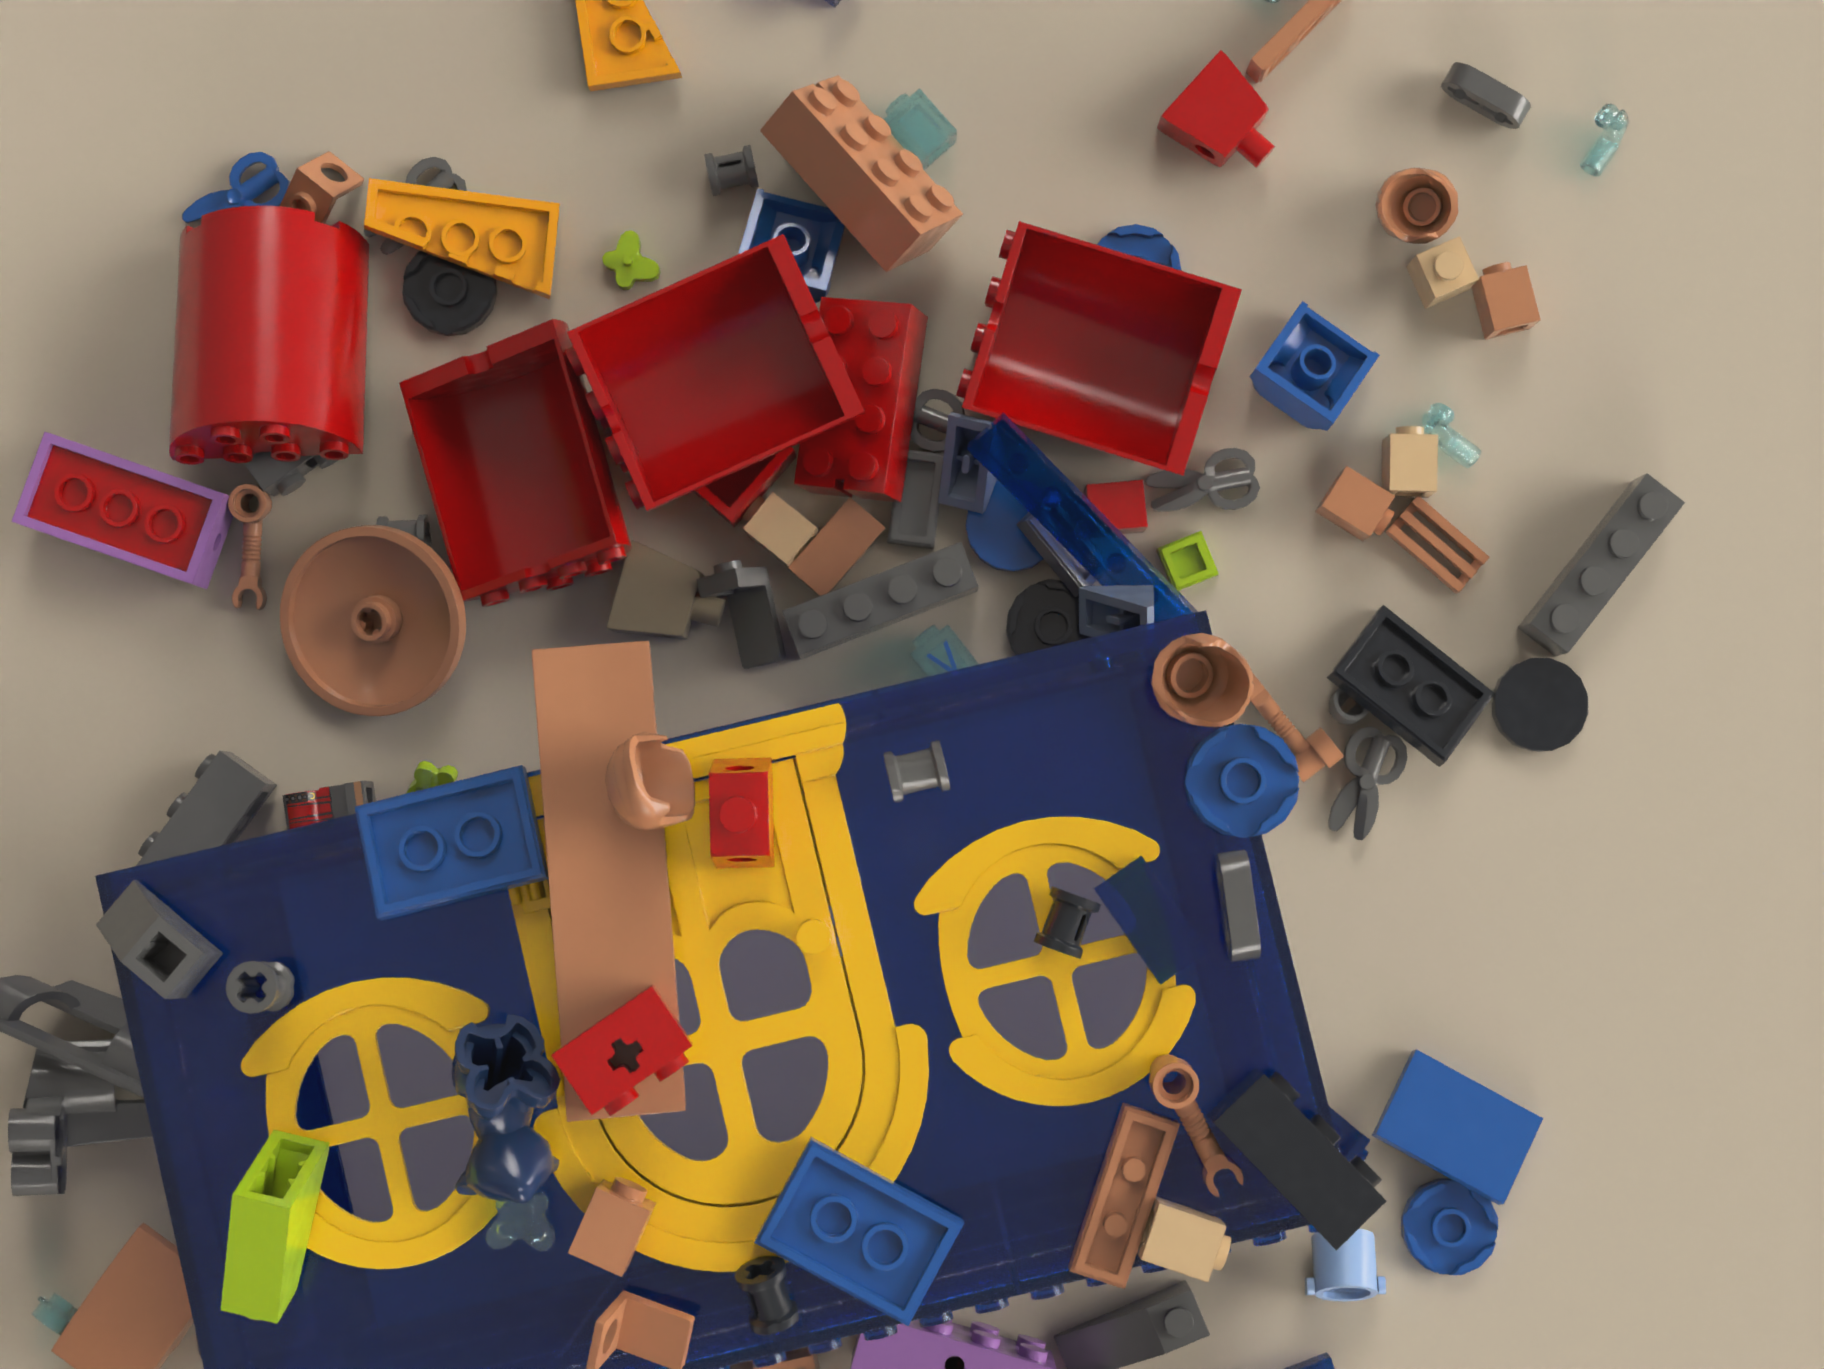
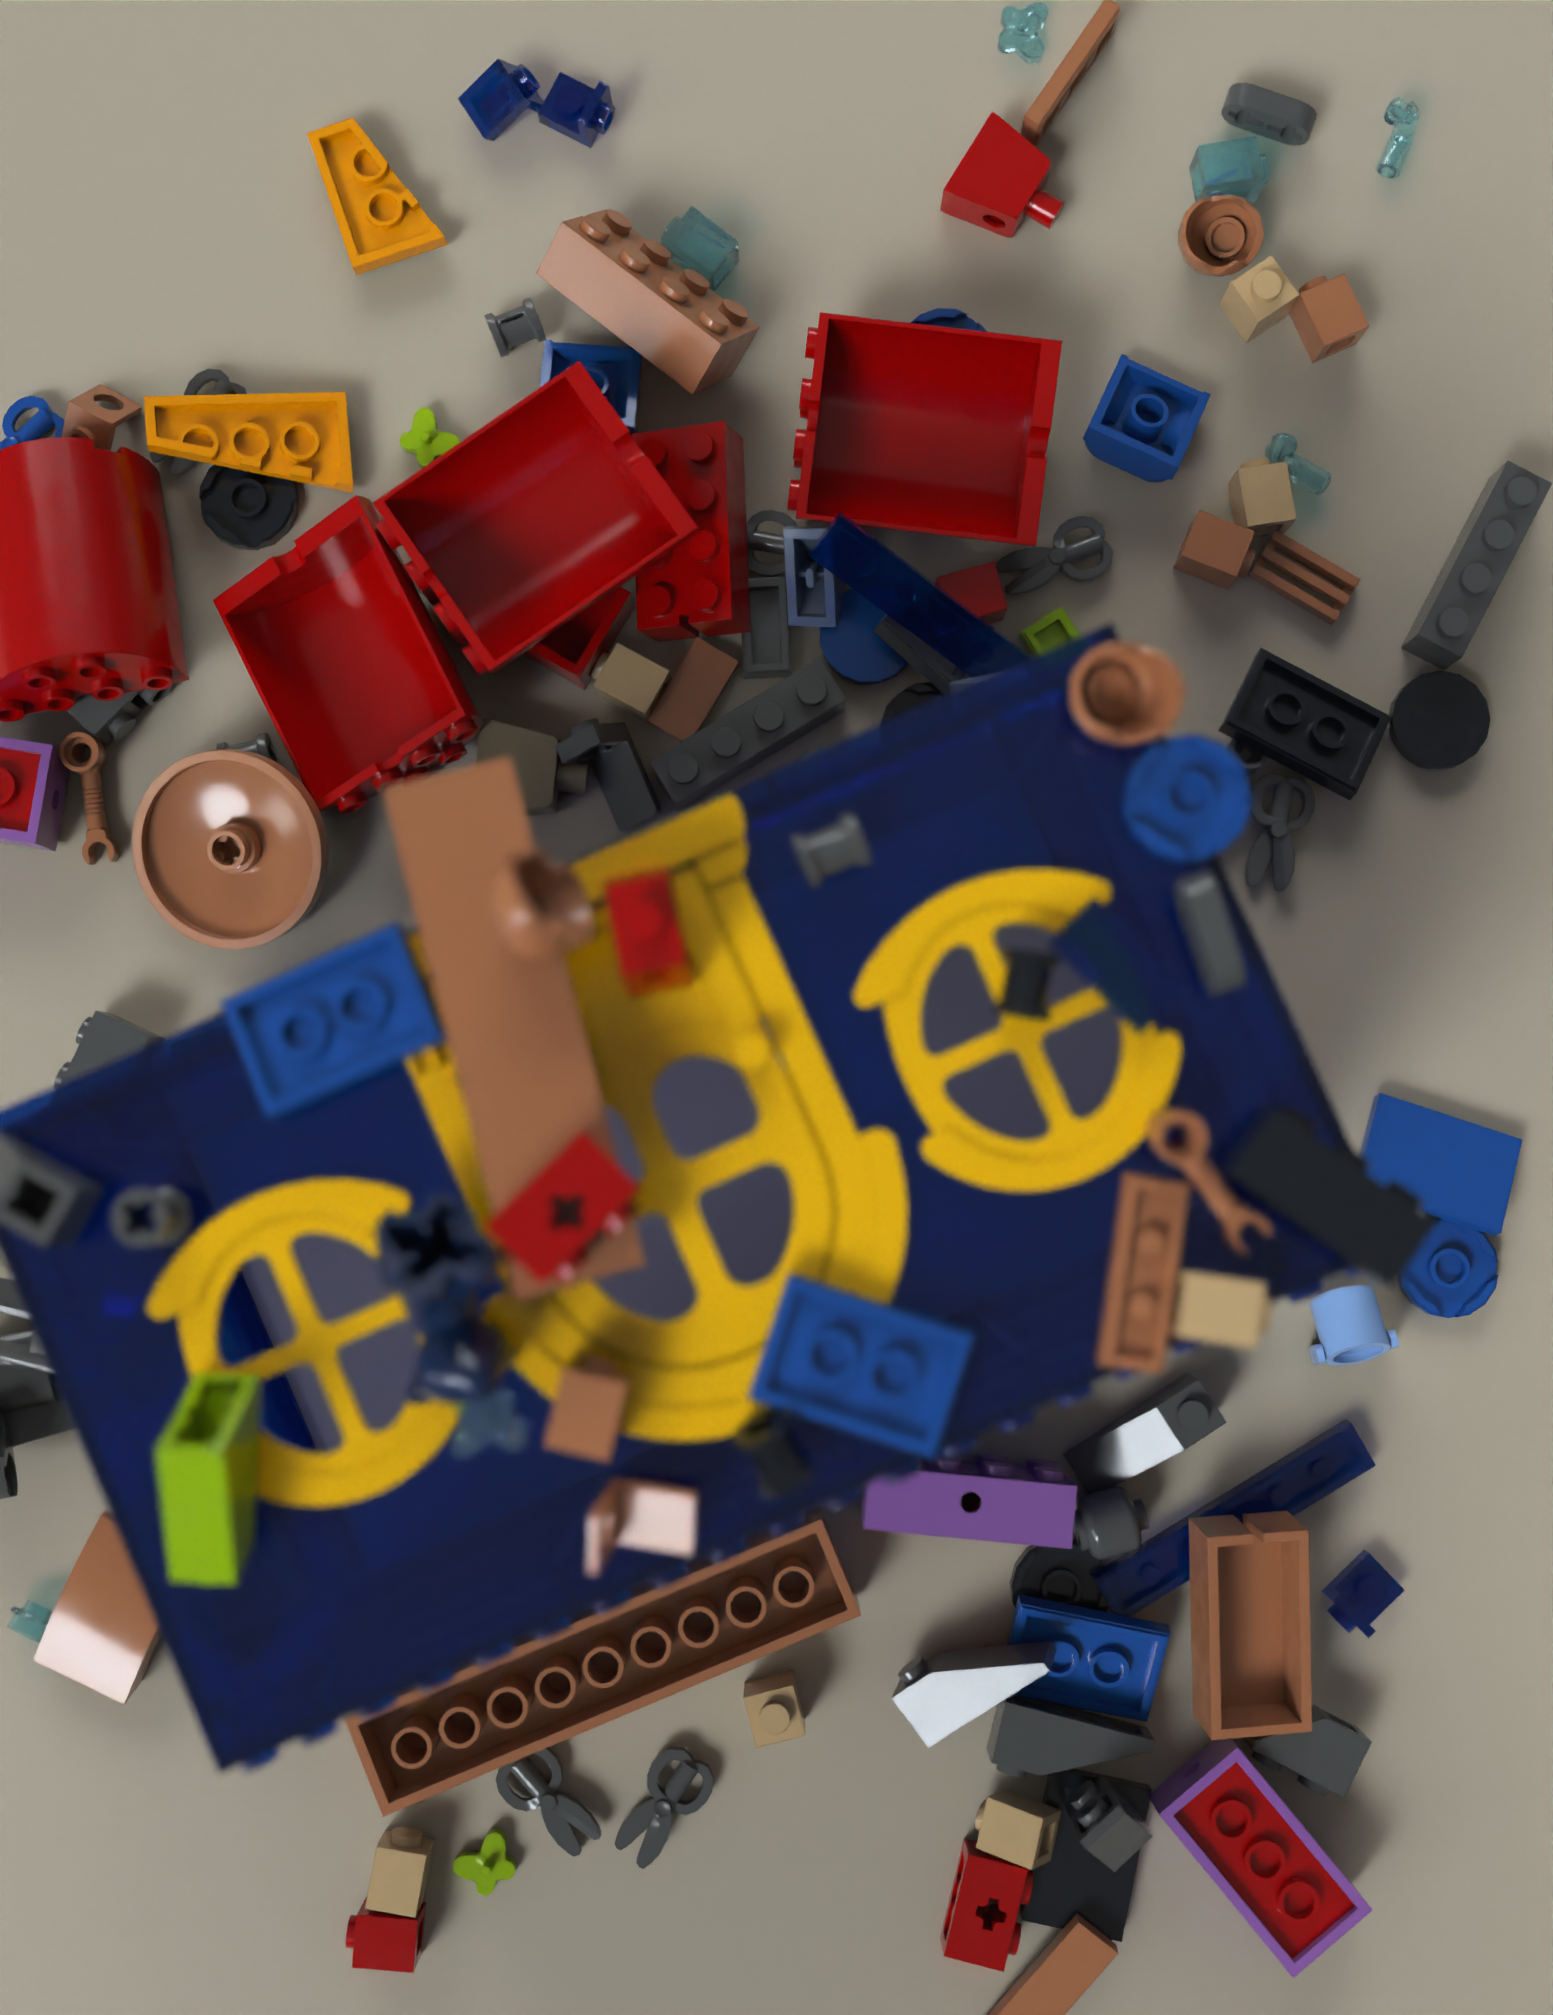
camera: 10 degrees left, 0 degrees up
(1437, 145) = (1229, 169): none -> clear light blue brick

